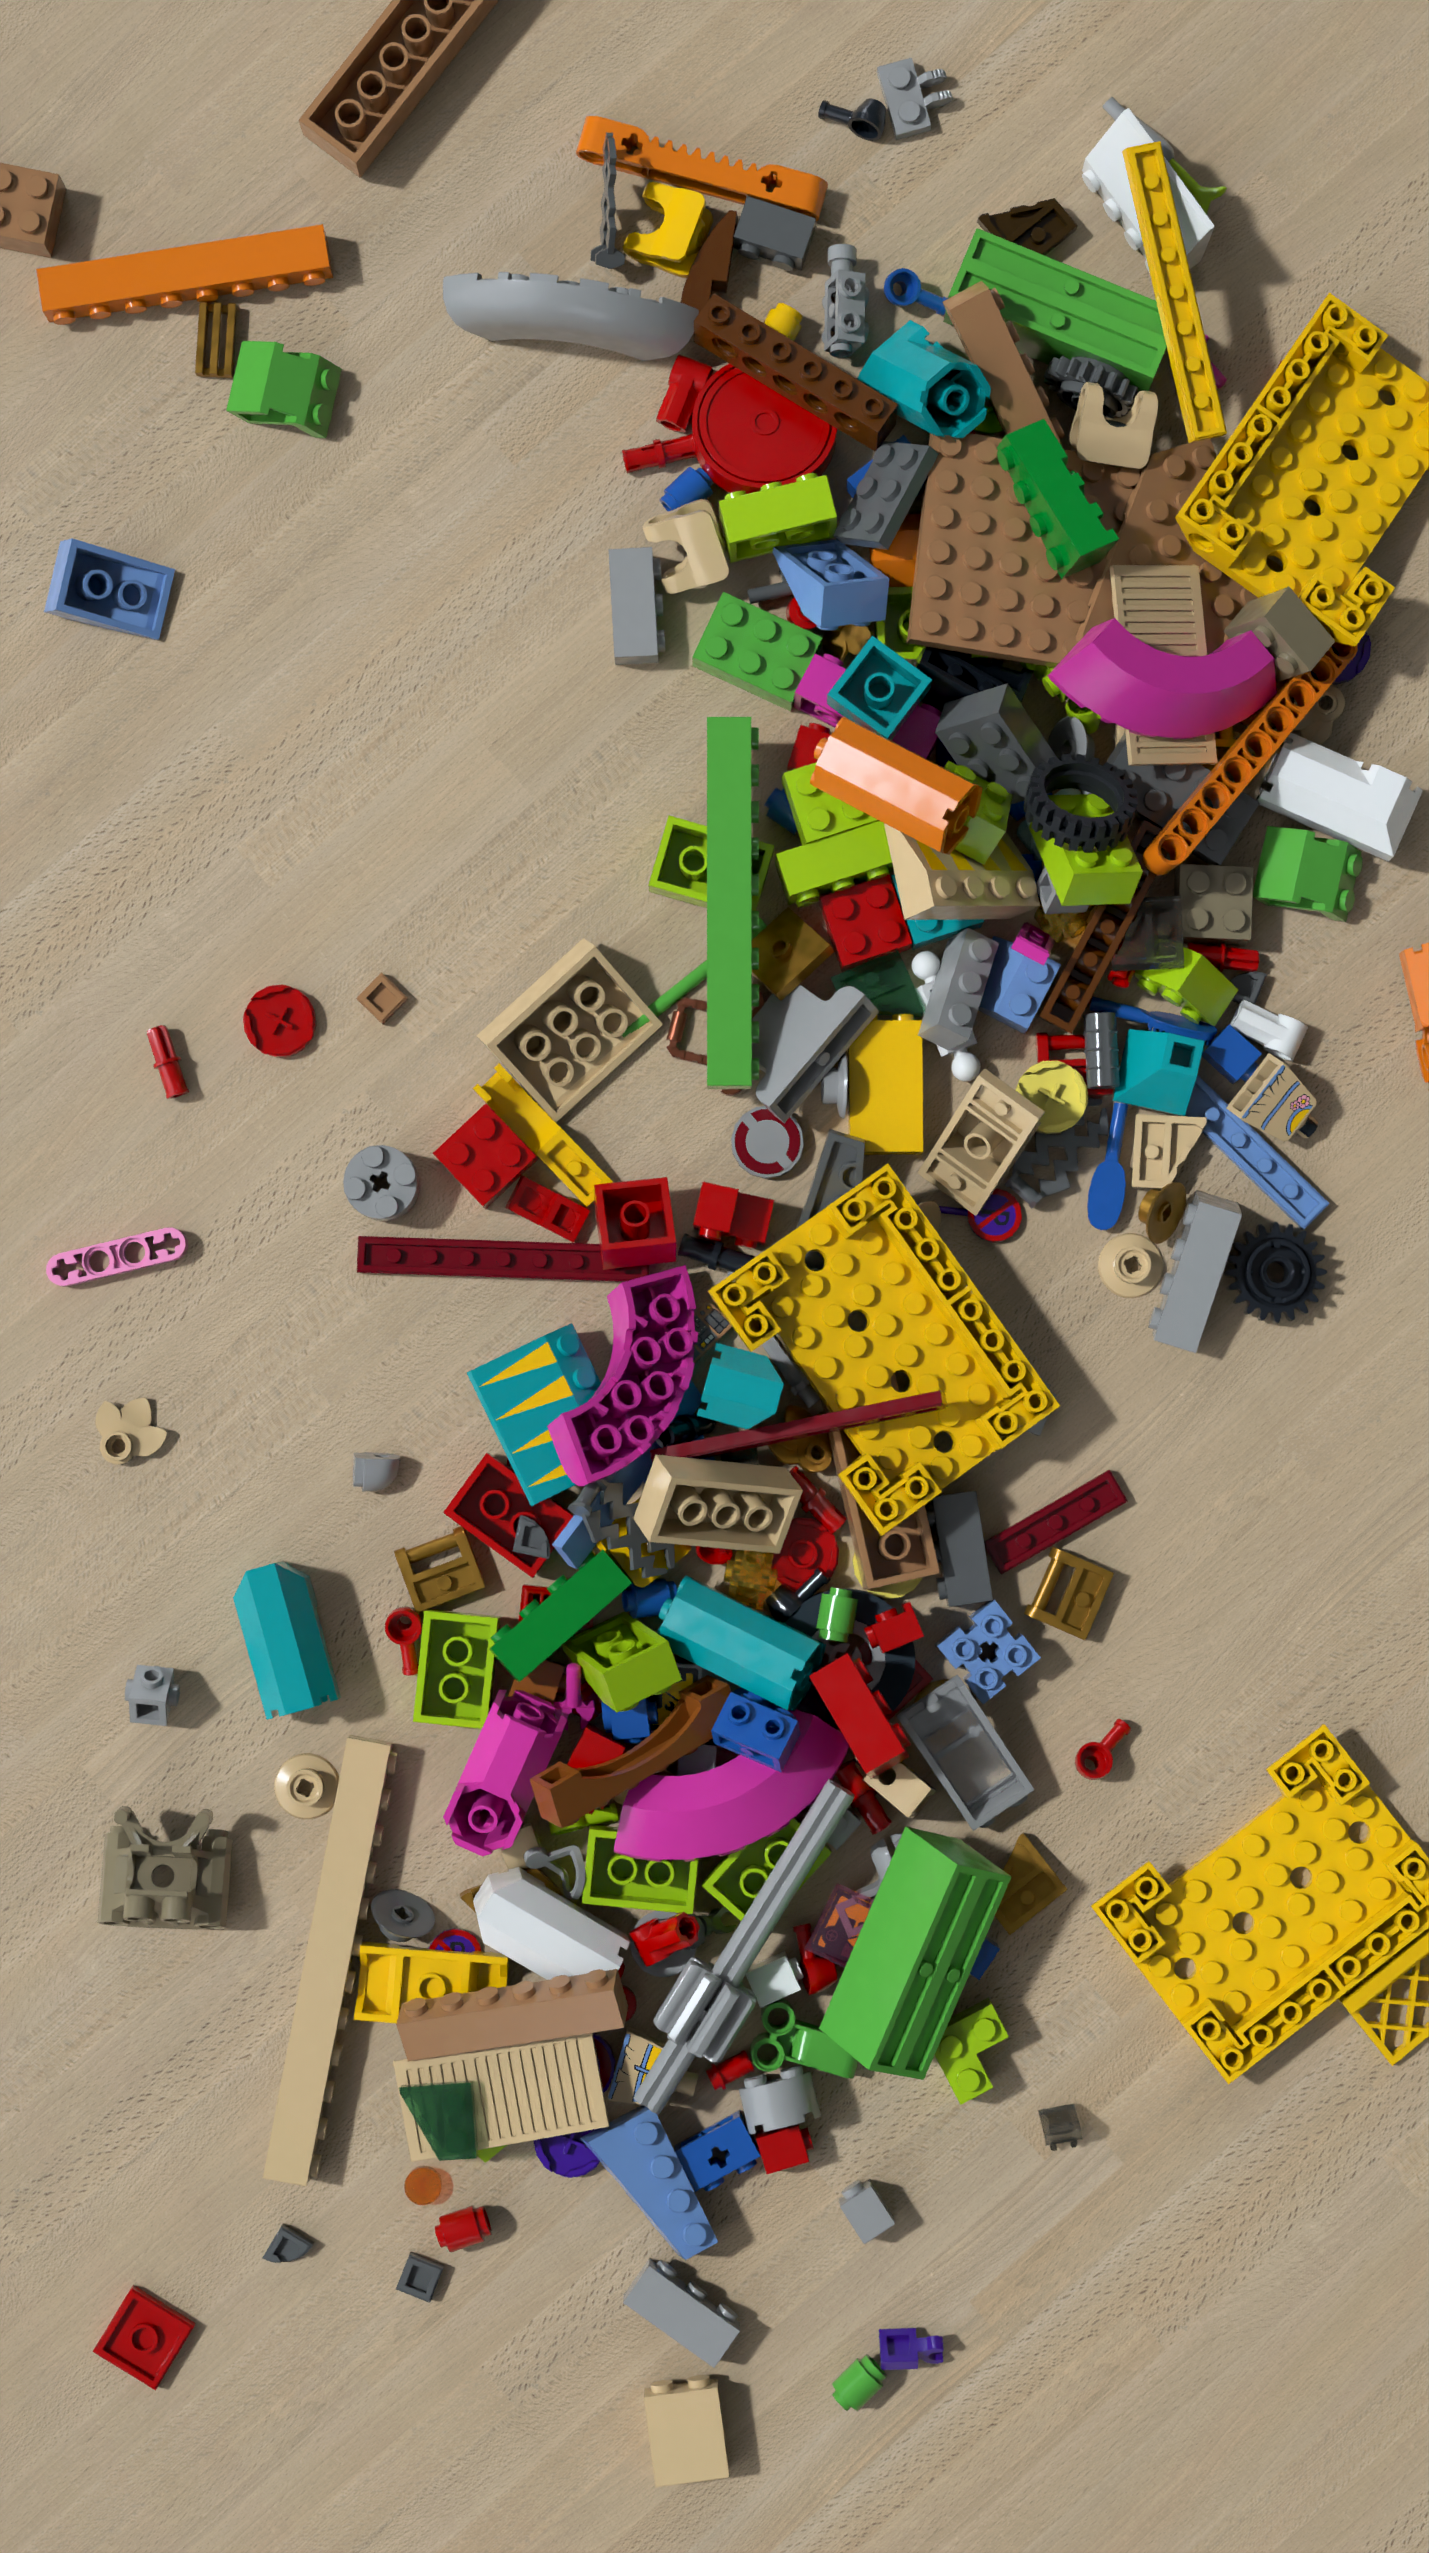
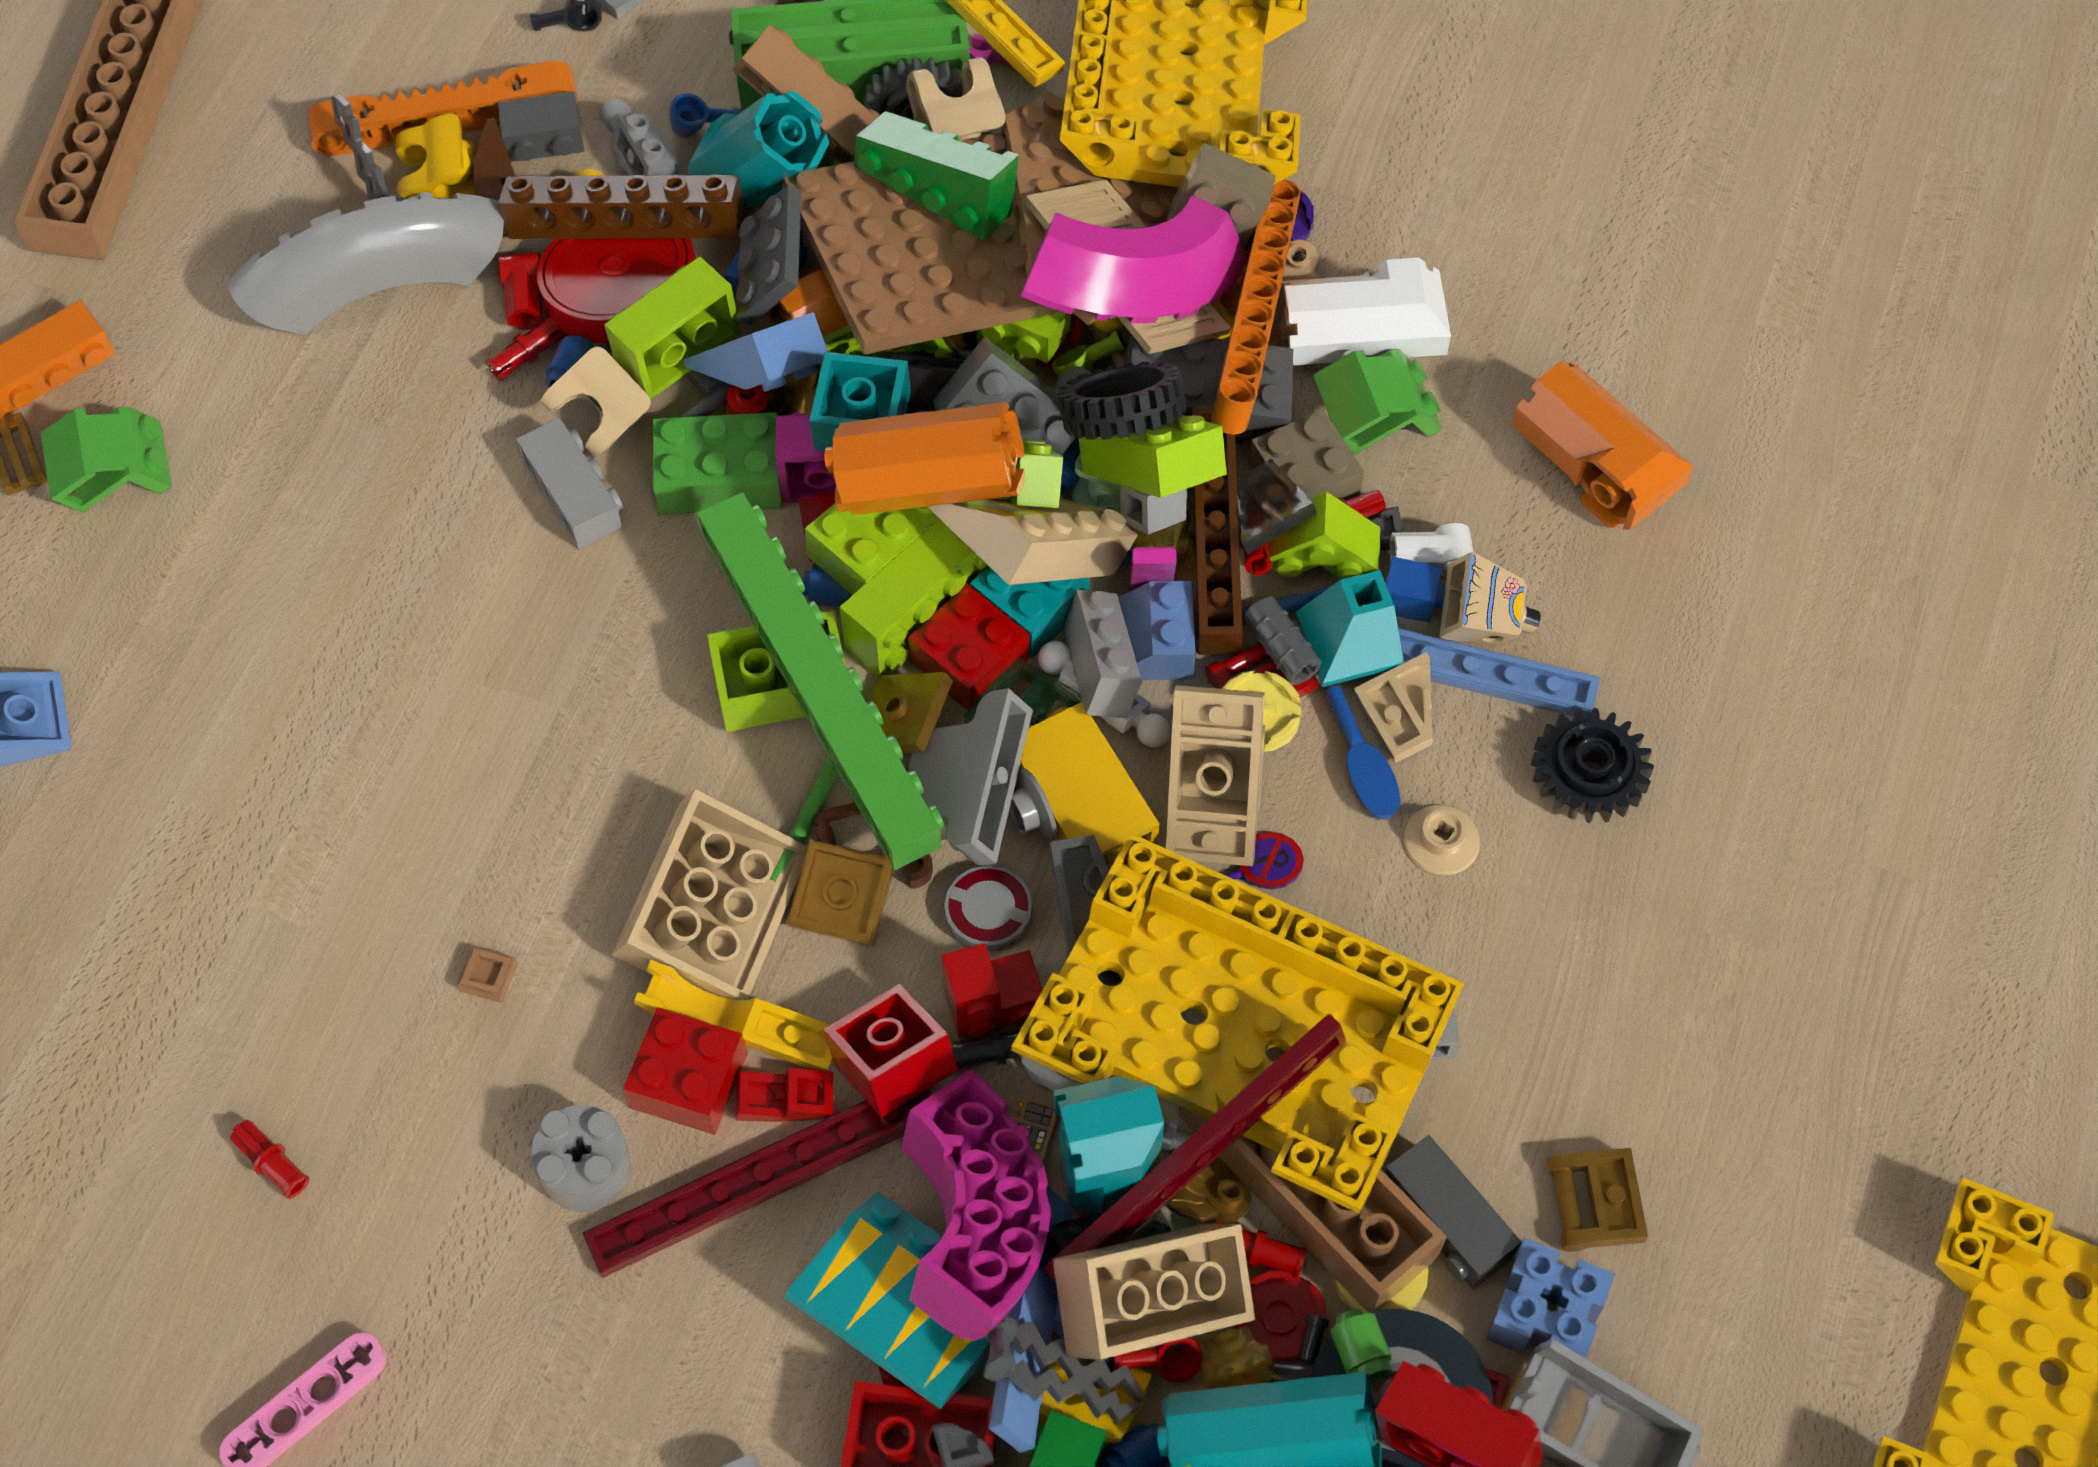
camera: 30 degrees left, 25 degrees down
(279, 1021) = (381, 1054): red tile -> none
(665, 1074) = (841, 893): none -> pearl gold plate
(894, 1629) = (1436, 1325): red brick -> none
(1041, 1157) = (1283, 779): dark grey piece -> none
(1055, 1522) = (1533, 1132): dark red tile -> none
(1101, 1752) = (1745, 1354): red bar -> none
(1162, 1211) = (1439, 762): pearl gold piece -> none
(1196, 1271) = (1513, 799): light grey wedge -> none

